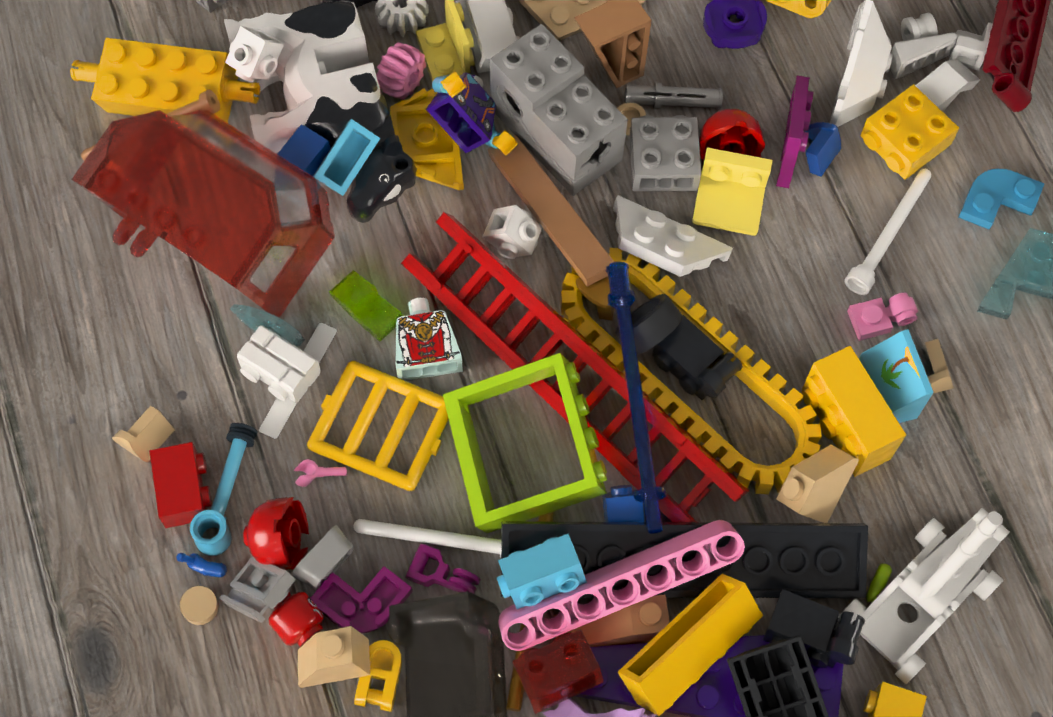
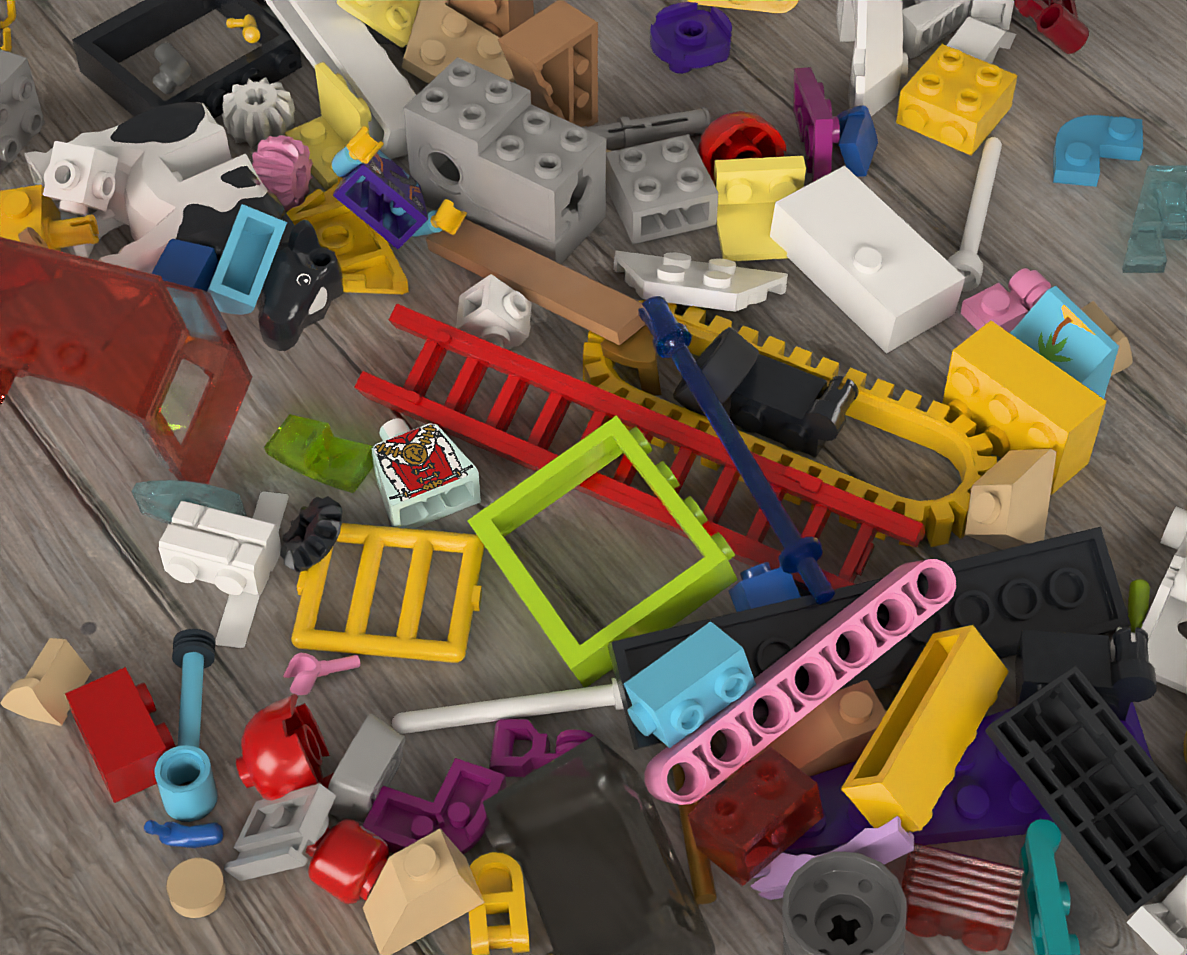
camera: 15 degrees left, 15 degrees down
(340, 371) = (312, 534): none -> black gear
(790, 254) = (866, 259): none -> white brick

